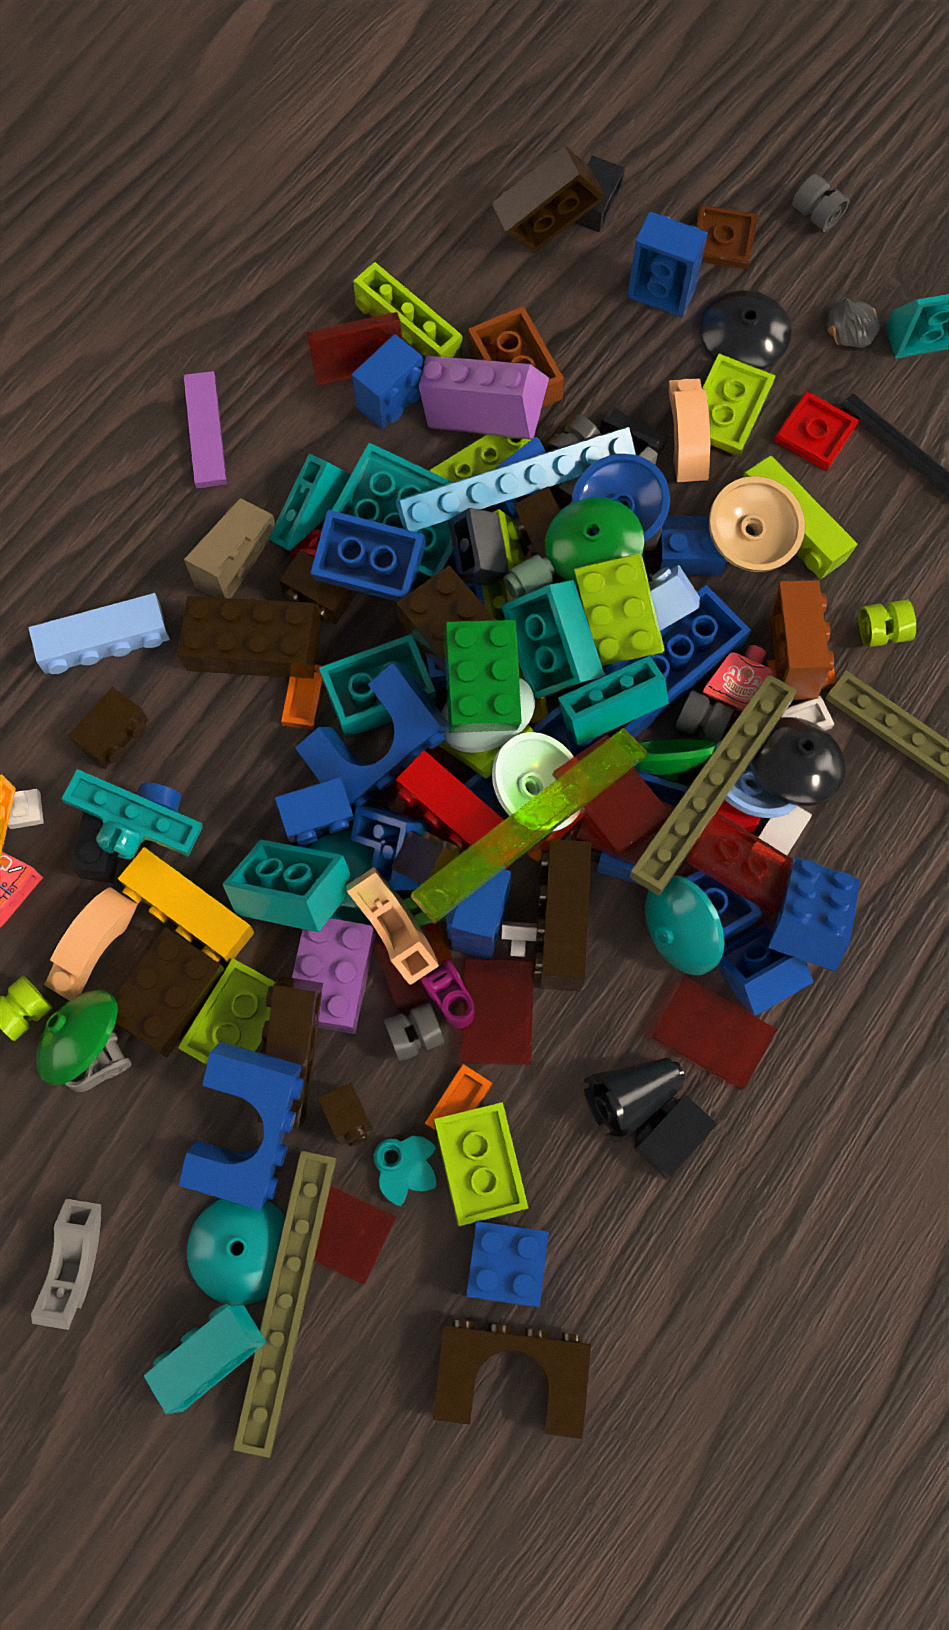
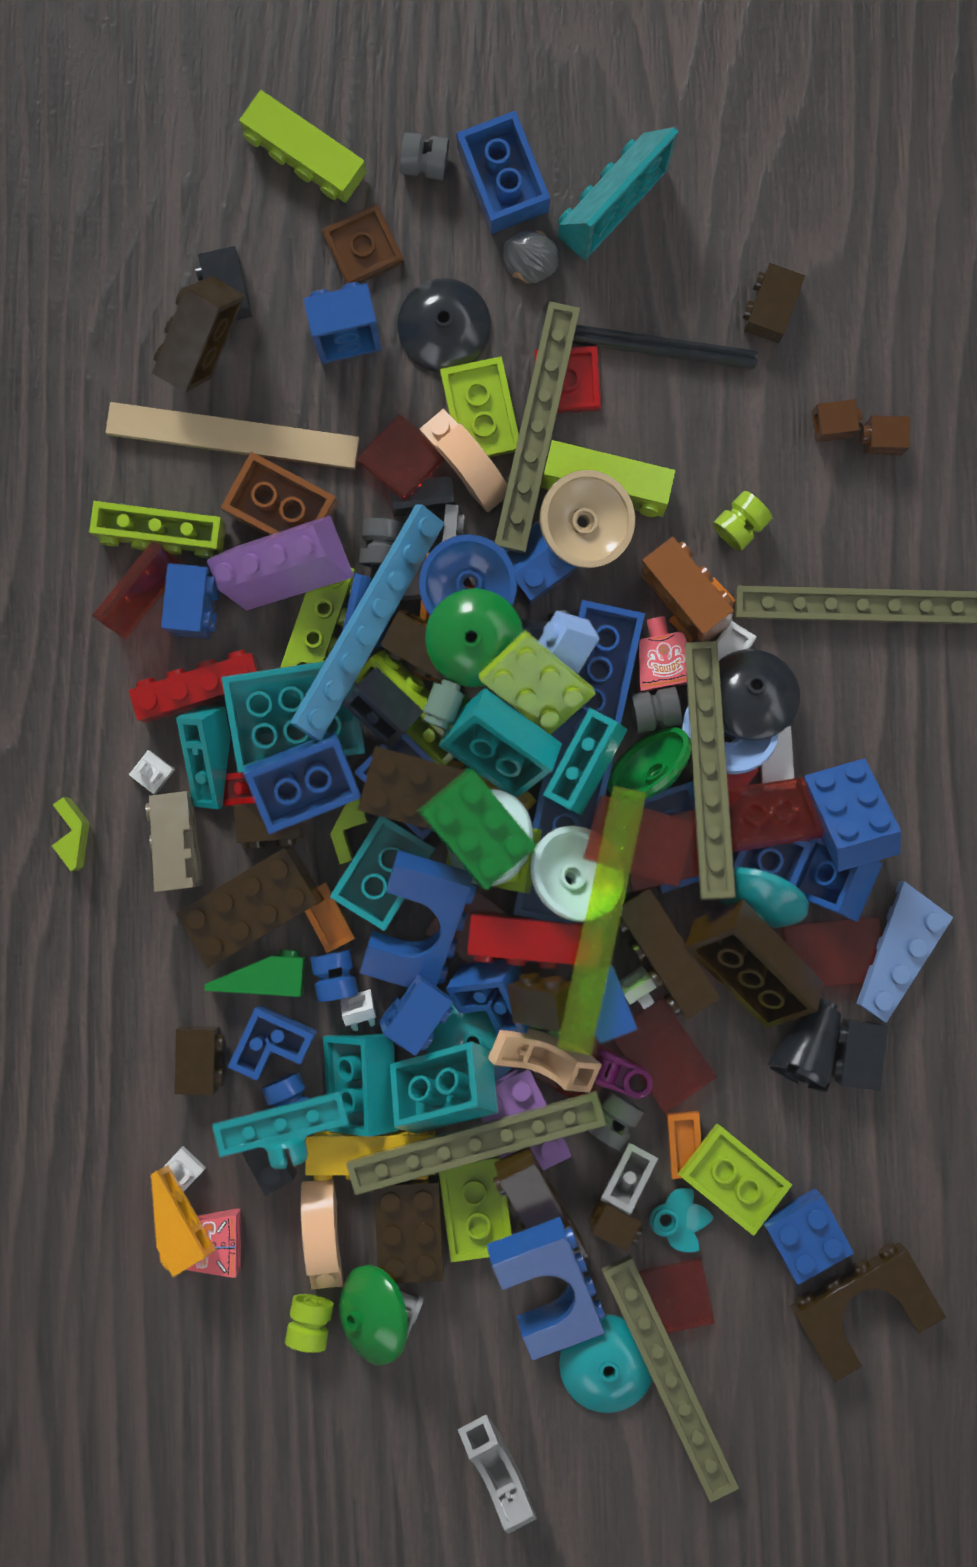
camera: 40 degrees left, 15 degrees up
(99, 634) = (126, 989): light blue brick -> none
(154, 497) = (73, 845): none -> lime slope
(176, 745) = (267, 1034): none -> blue brick
(204, 1358) = (644, 1461): teal brick -> none
(205, 430) = (64, 749): medium lavender tile -> none
(218, 701) = (275, 975): none -> green slope
(228, 834) = (361, 1071): none -> teal slope
(257, 489) = (152, 772): none -> white tile
(267, 749) = (337, 986): none -> blue wheel
(271, 781) = (358, 1009): none -> white tile
(282, 949) = (476, 1143): none -> olive plate
(329, 441) = (188, 689): none -> red brick
(379, 630) = (349, 818): none -> lime slope
(388, 1085) = (629, 1179): none -> light grey slope
(512, 294) = (232, 435): none -> tan tile
(636, 975) = (755, 964): none -> dark brown brick
(638, 395) = (400, 457): none -> clear red tile
(730, 139) = (302, 147): none -> lime brick
(765, 439) = (537, 427): none -> olive plate
(787, 1068) = (907, 942): none -> medium blue wing
(874, 250) = (503, 172): none -> blue brick

